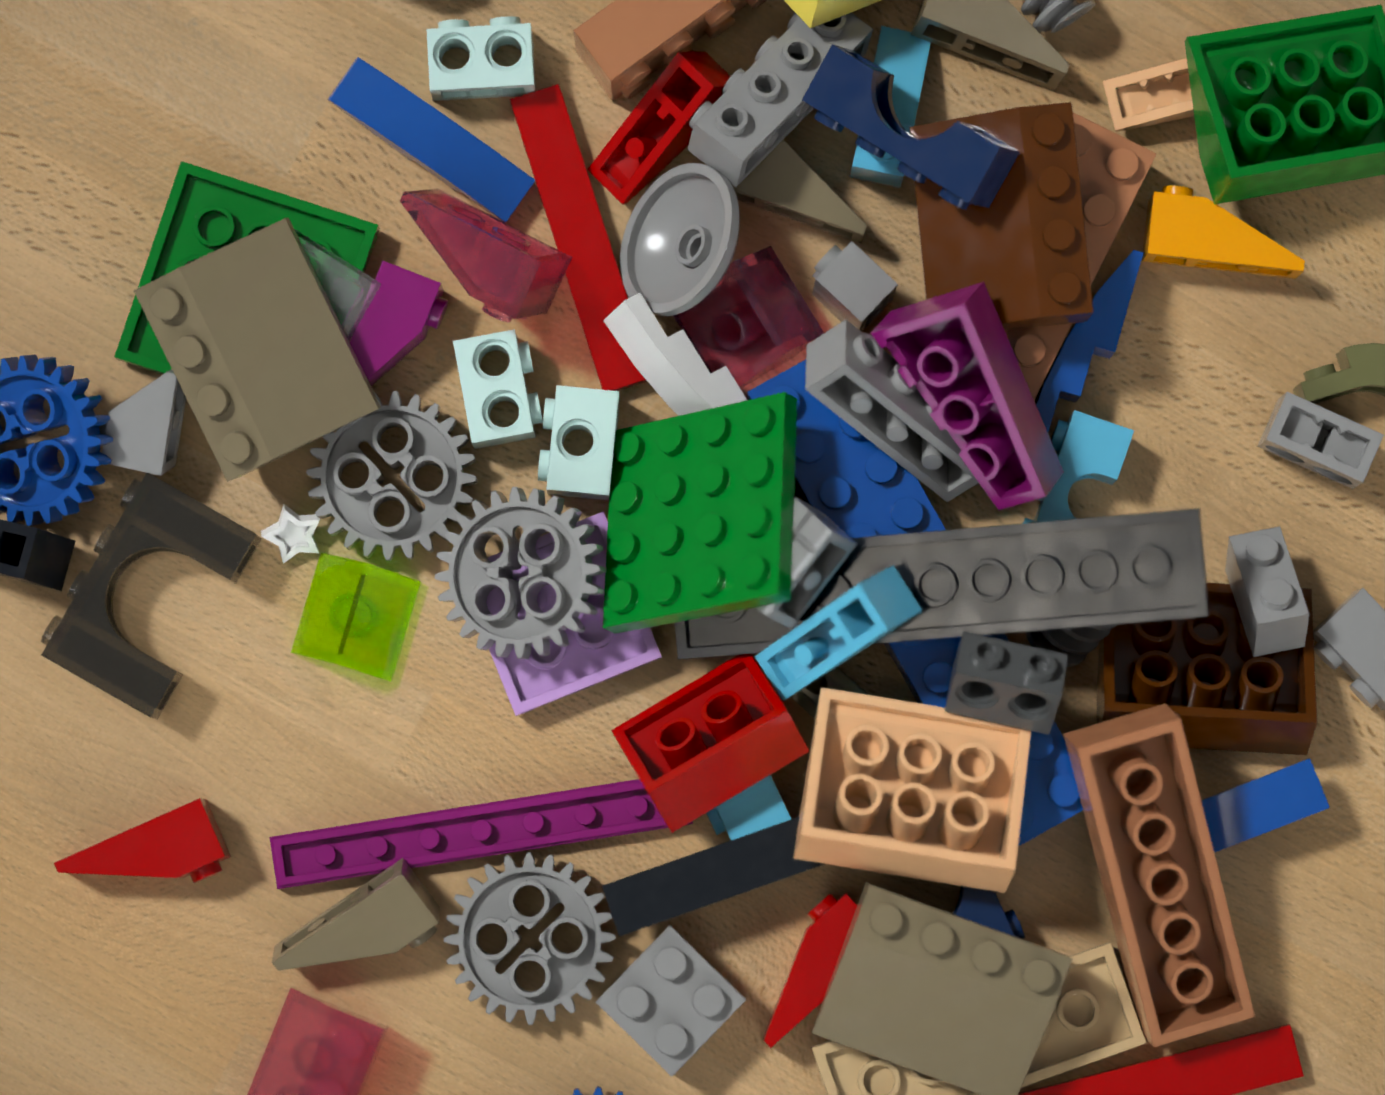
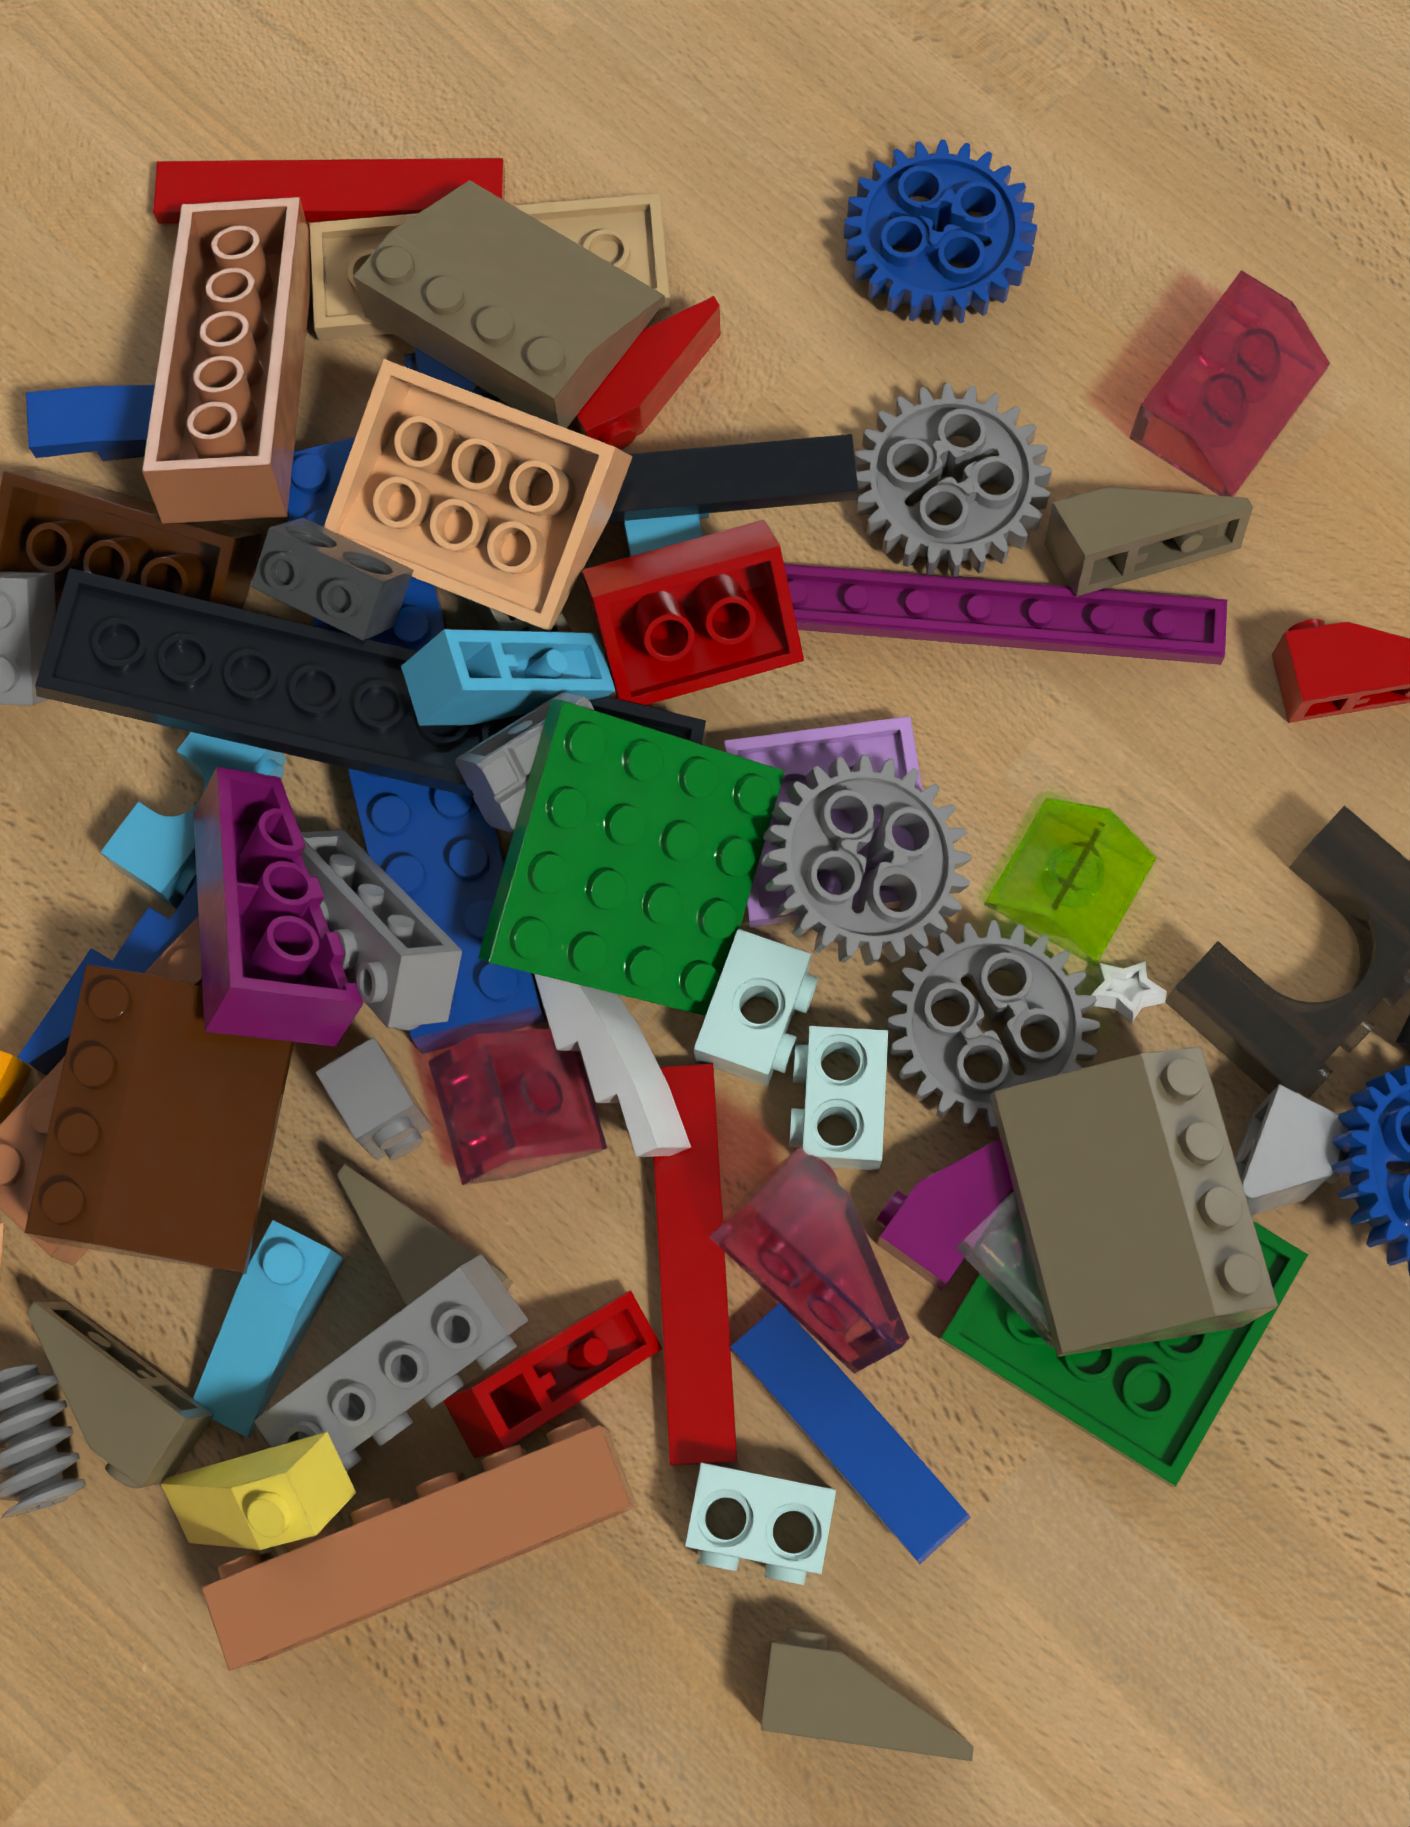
camera: 160 degrees left, 10 degrees down
(670, 1000) = (811, 372): light grey brick -> none
(680, 238) = (589, 1227): light grey dish -> none
(859, 96) = (295, 1323): dark blue arch -> none

